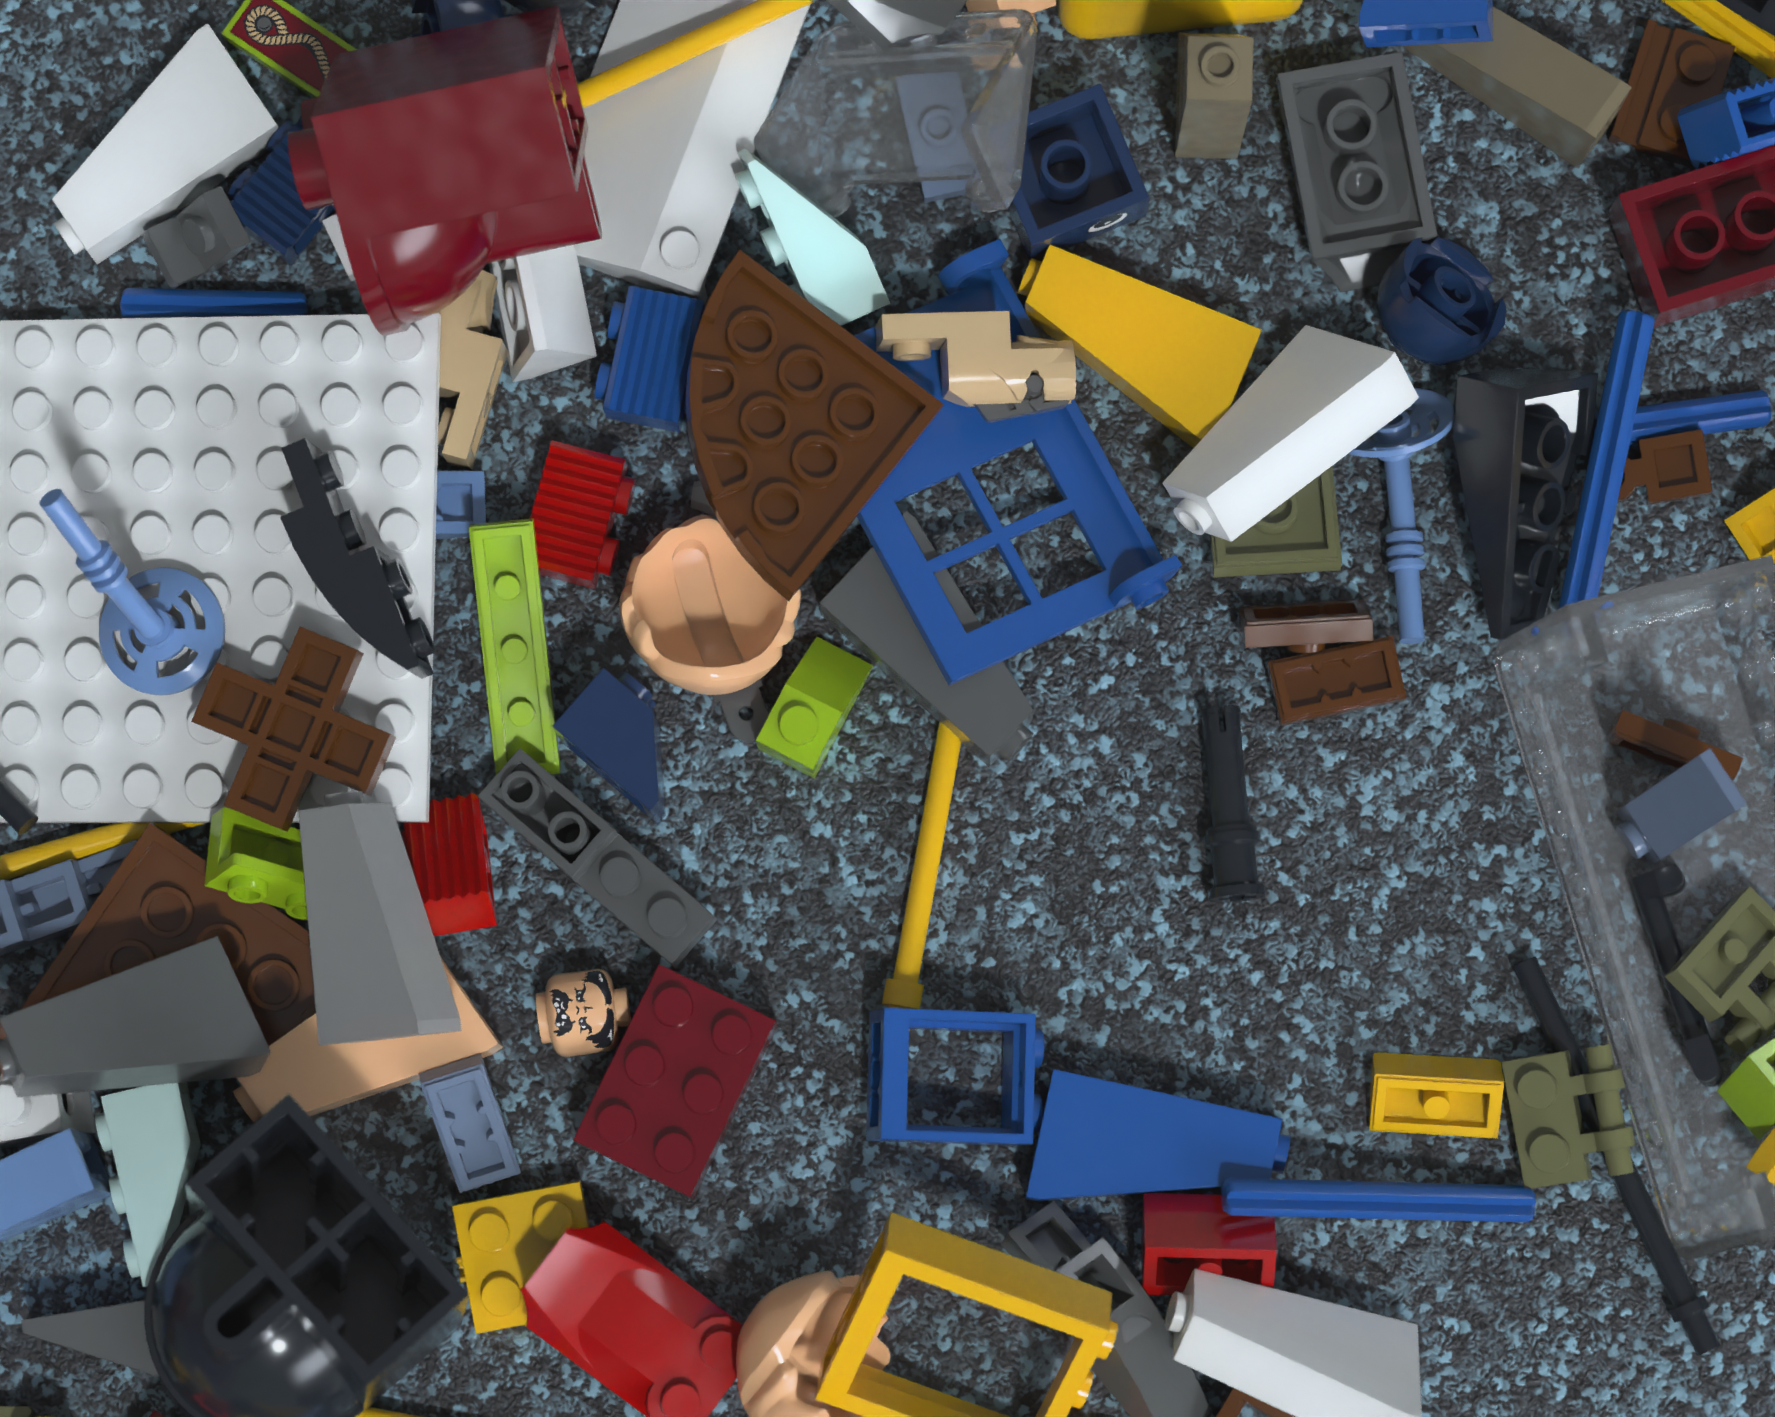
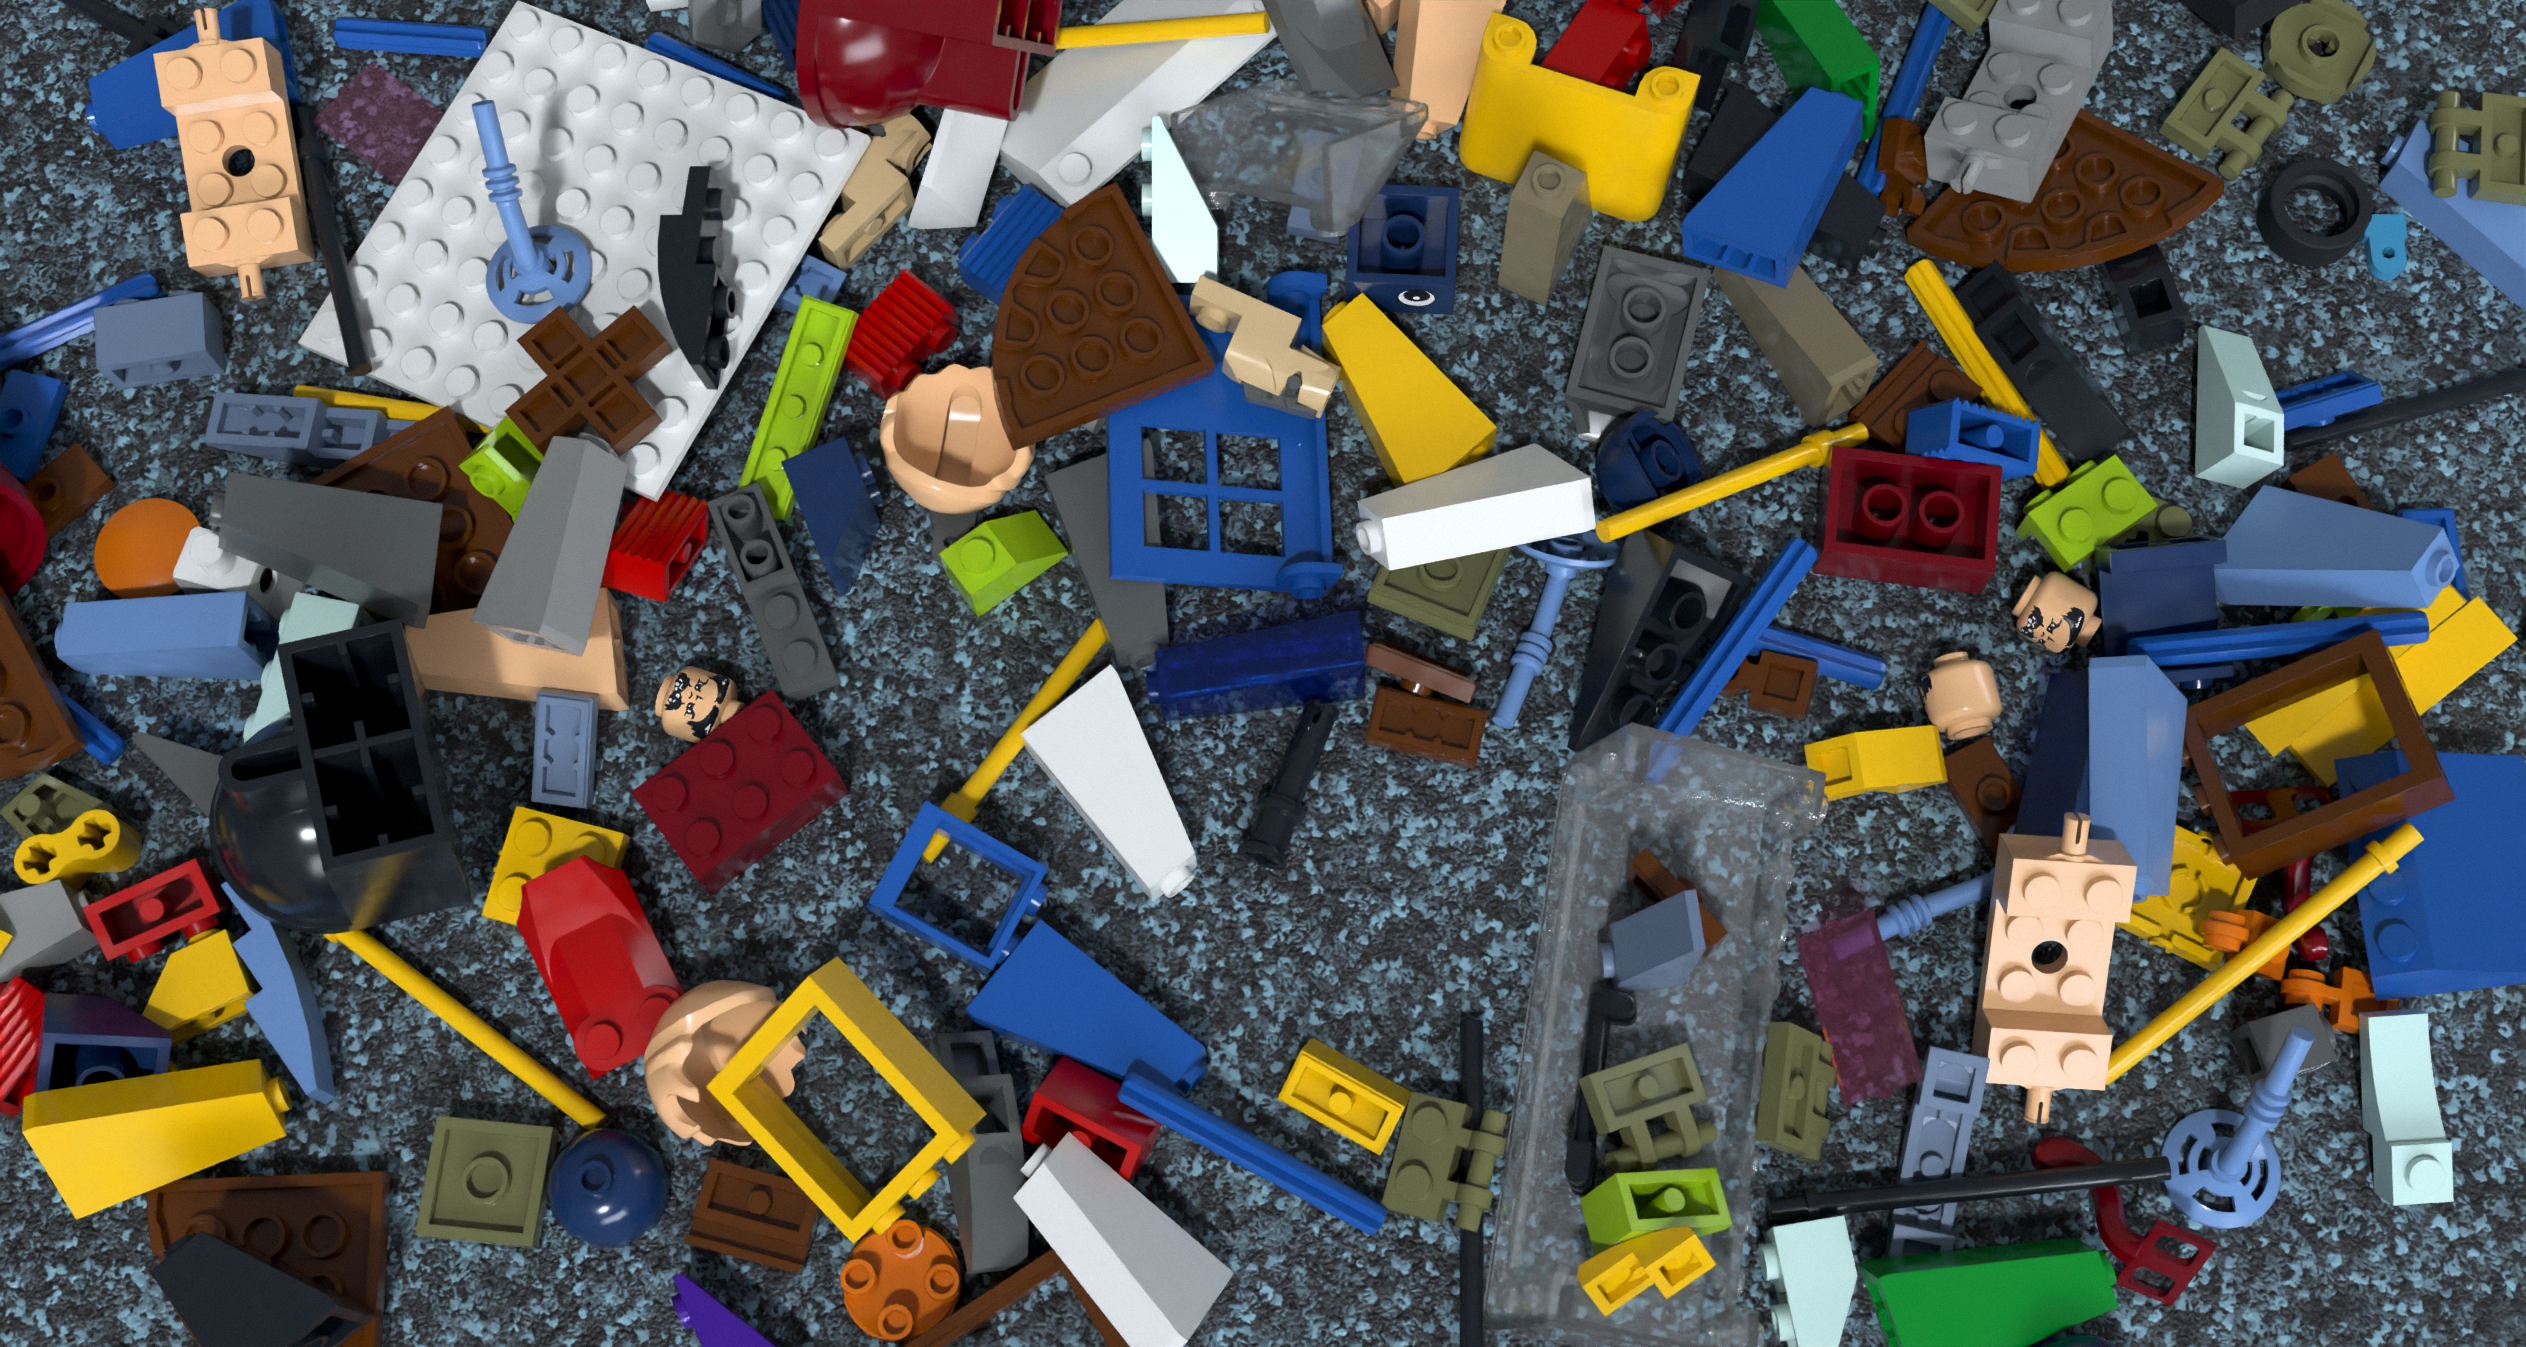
camera: 25 degrees right, 10 degrees down
(1047, 887) = (1109, 775): none -> white slope
(1143, 704) = (1262, 669): none -> clear blue slope
(1593, 198) = (1812, 452): none -> yellow bar

